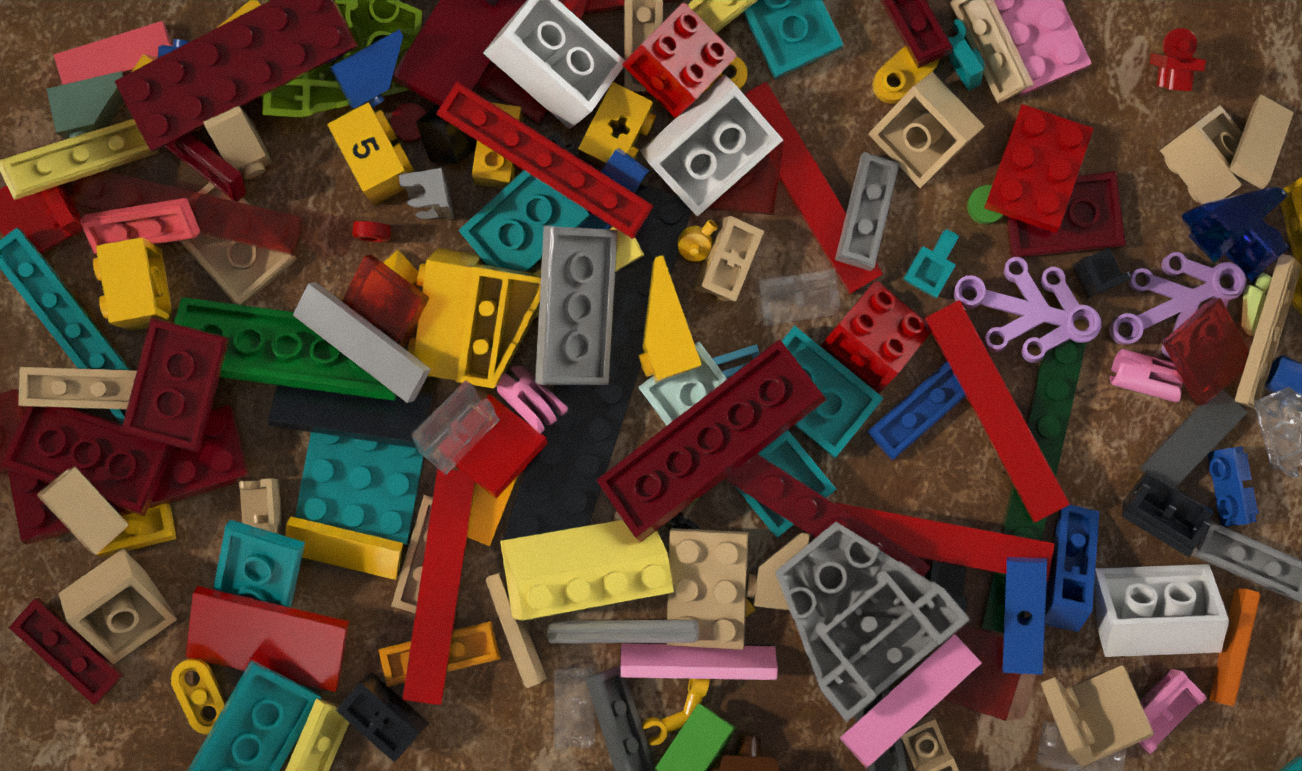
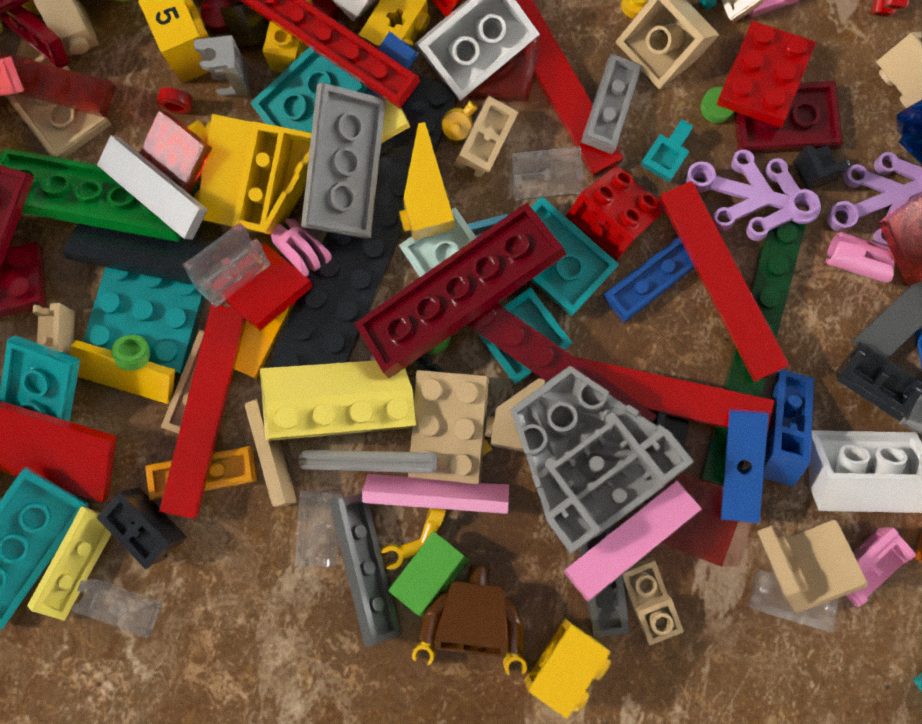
camera: 15 degrees right, 5 degrees down
(355, 528) = (131, 352): none -> bright green tile

